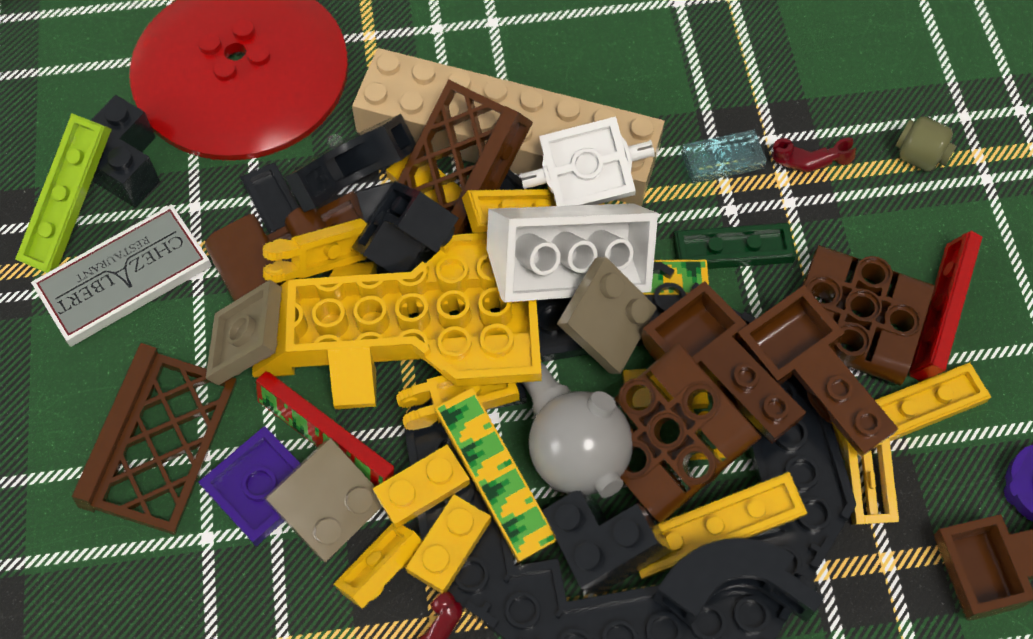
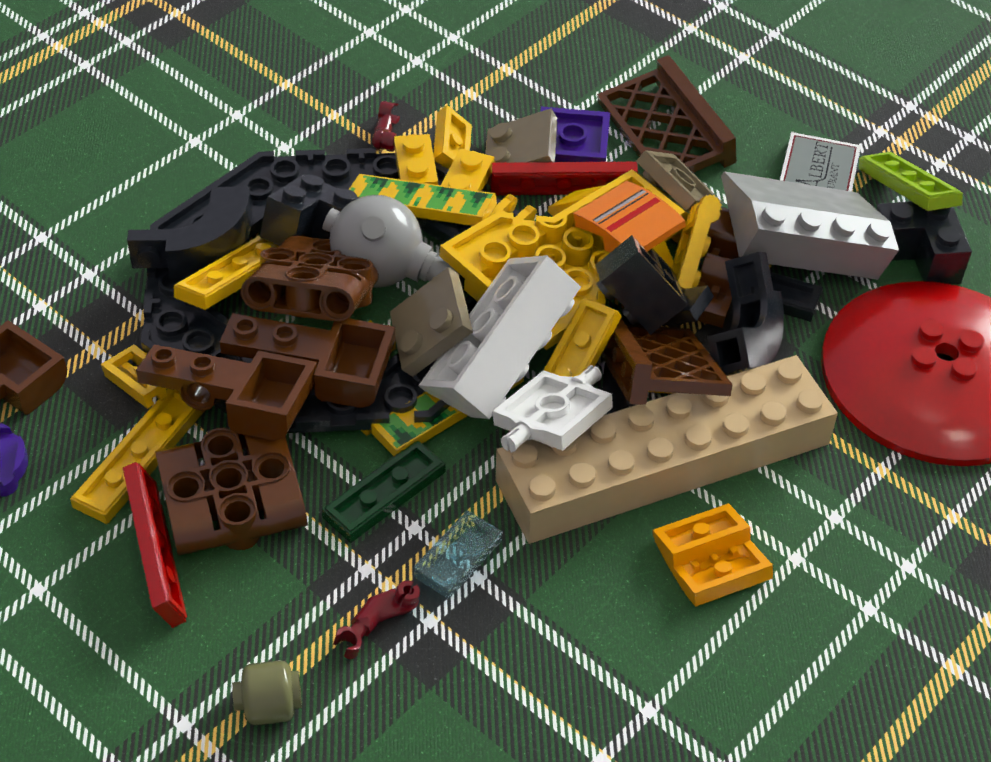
camera: 140 degrees right, 15 degrees down
(198, 209) = (808, 226): none -> light grey slope
(357, 284) = (629, 212): none -> orange slope
(548, 51) = (712, 554): none -> light orange slope

